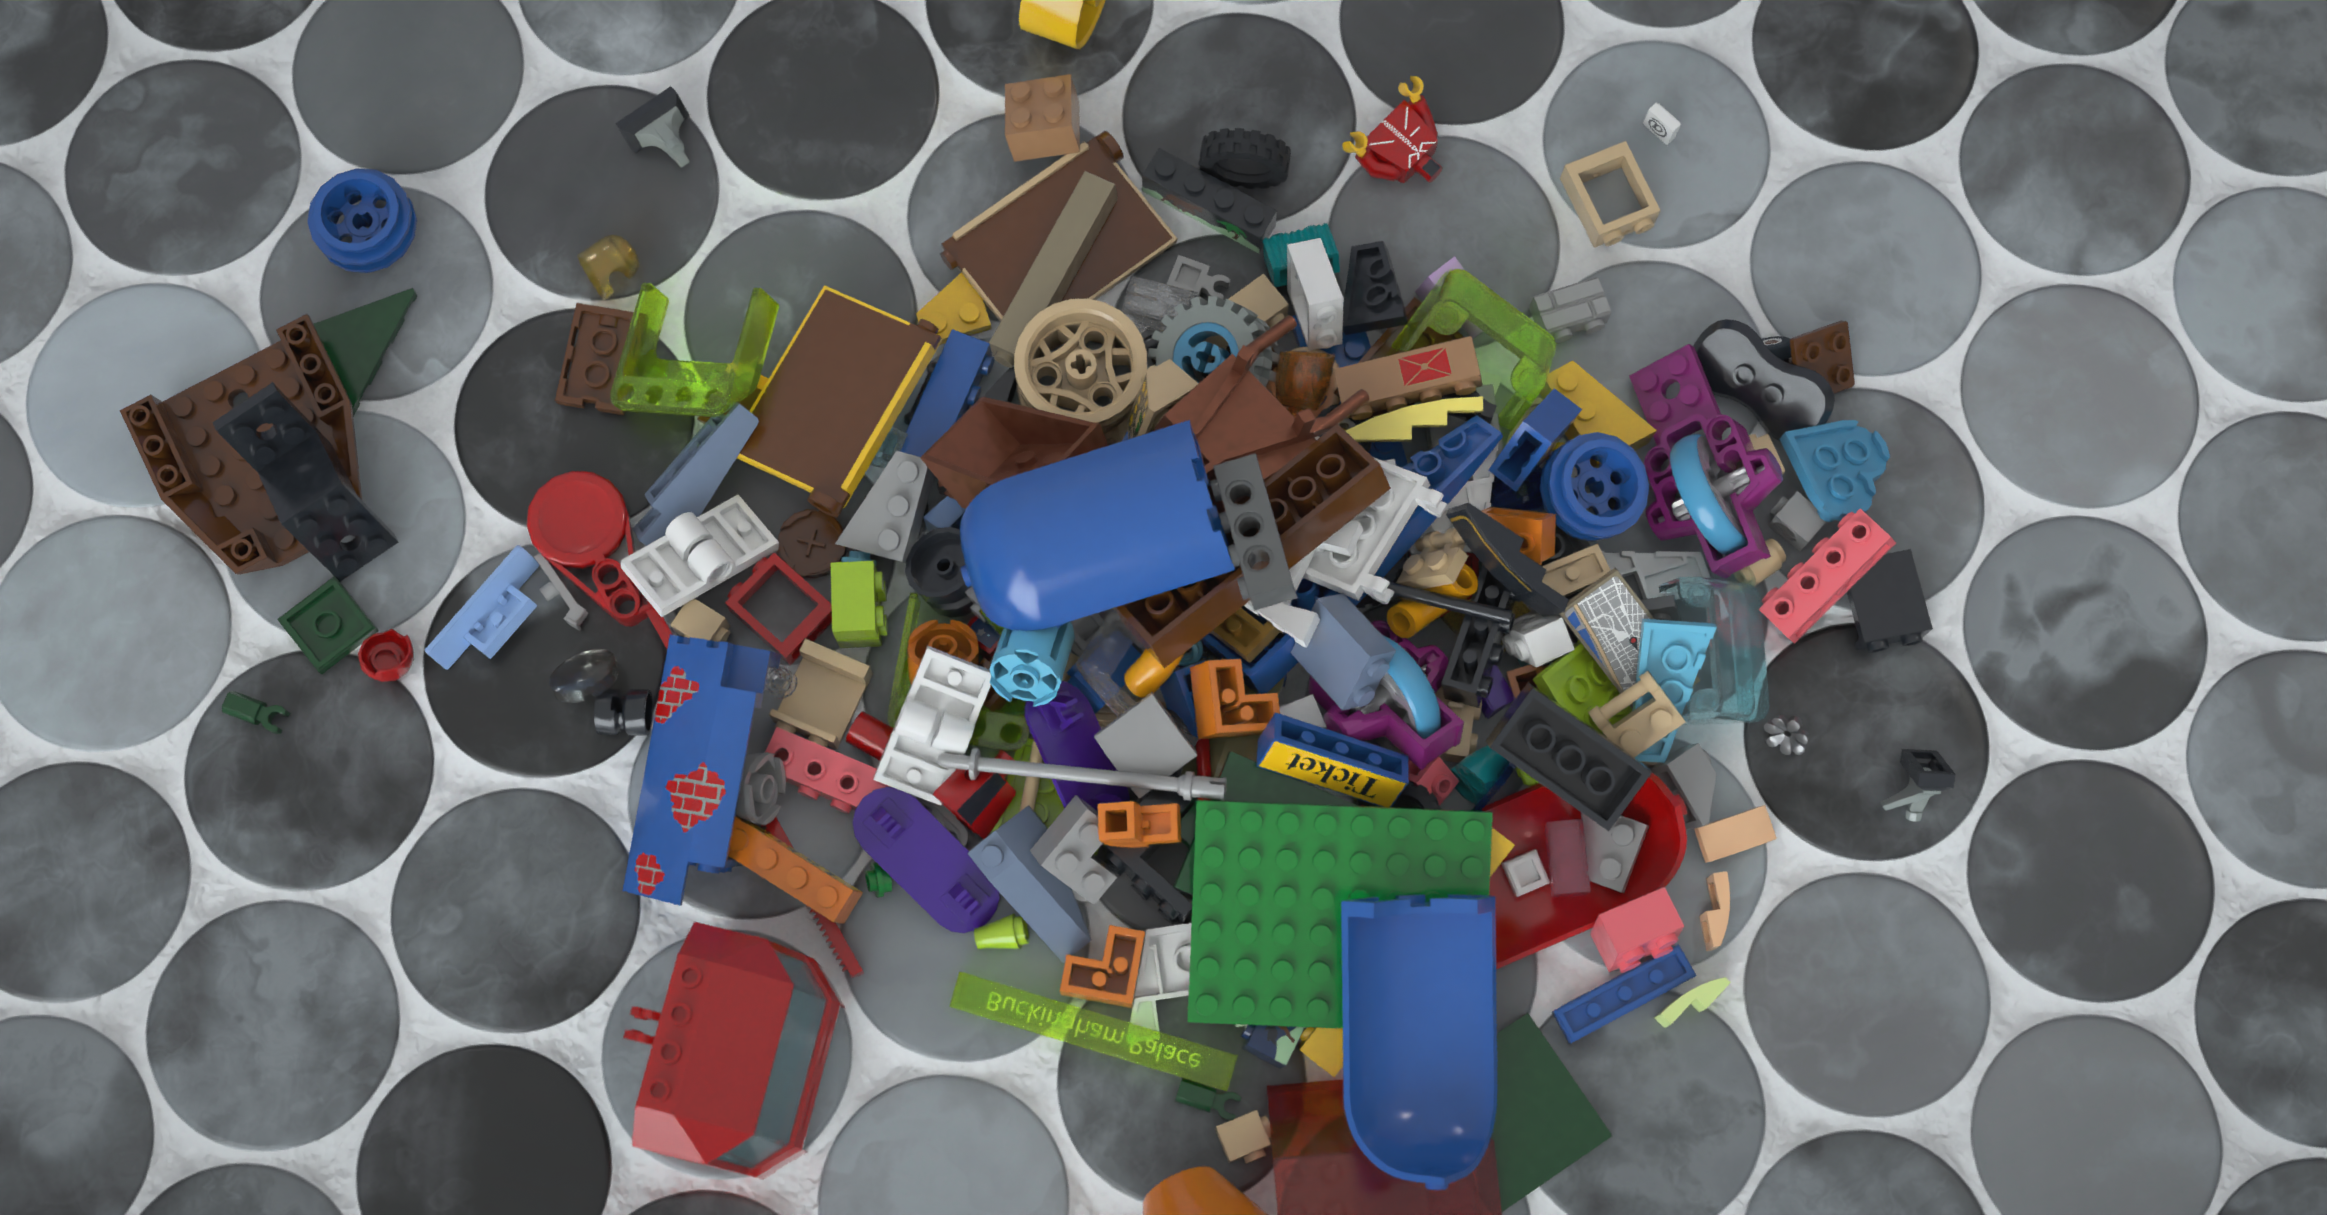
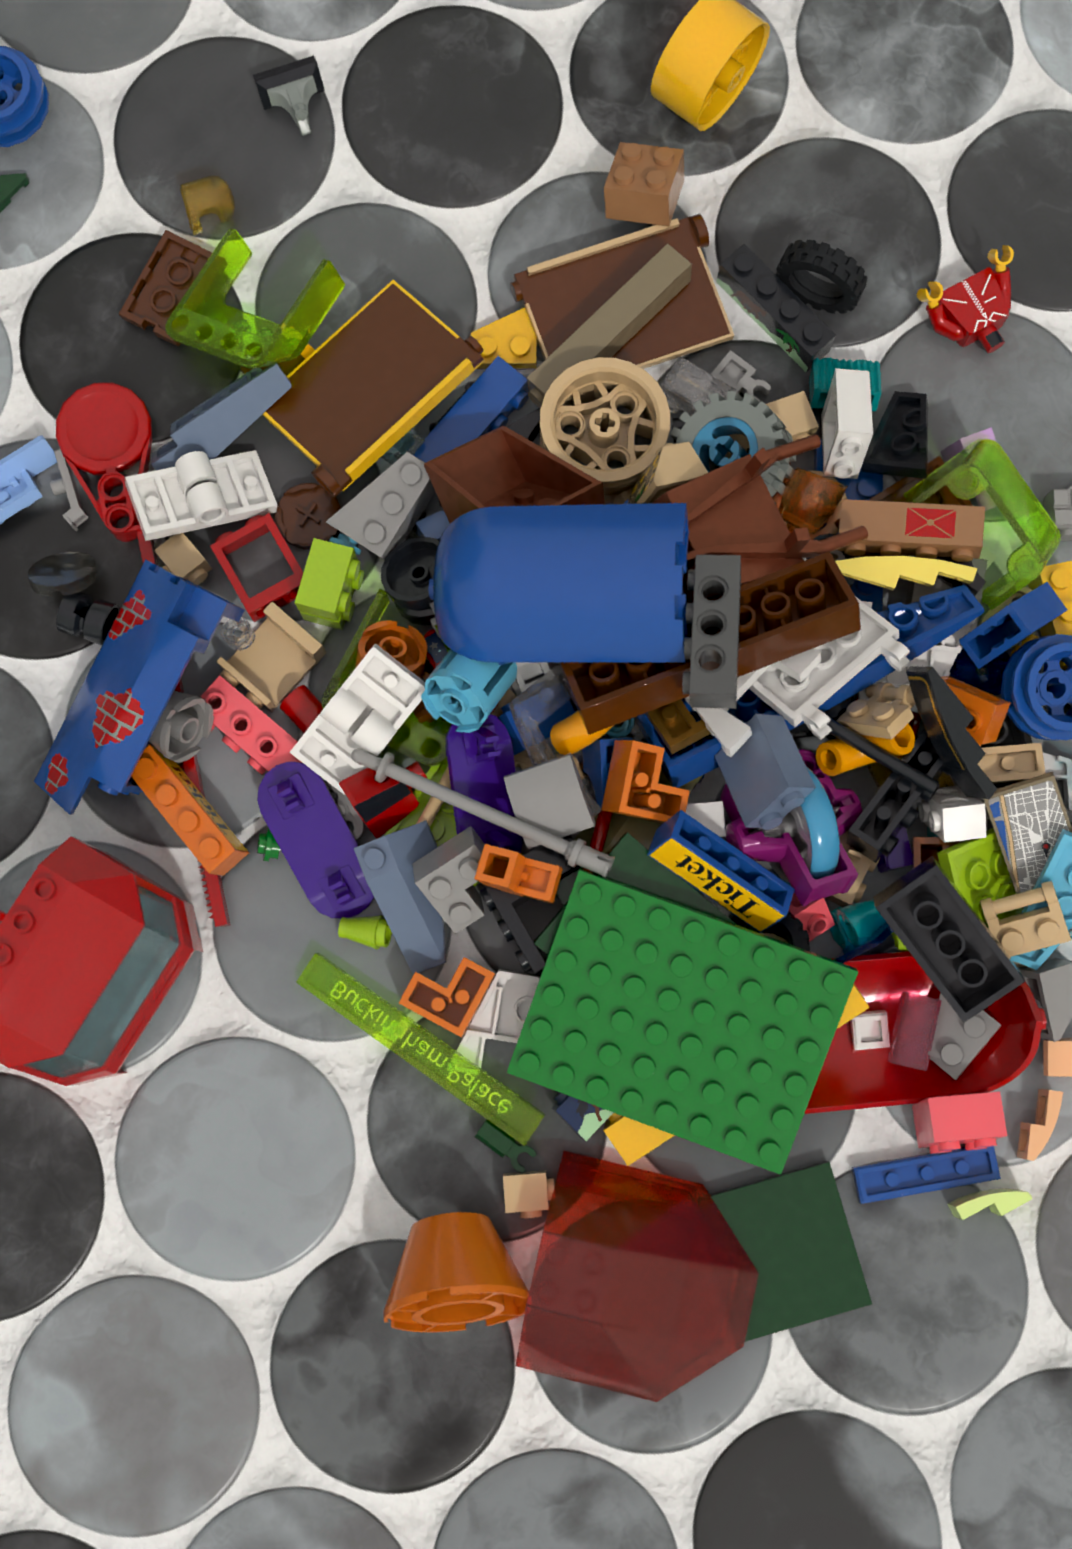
camera: 20 degrees right, 5 degrees up
(1420, 1033) = (721, 1160): blue panel -> none

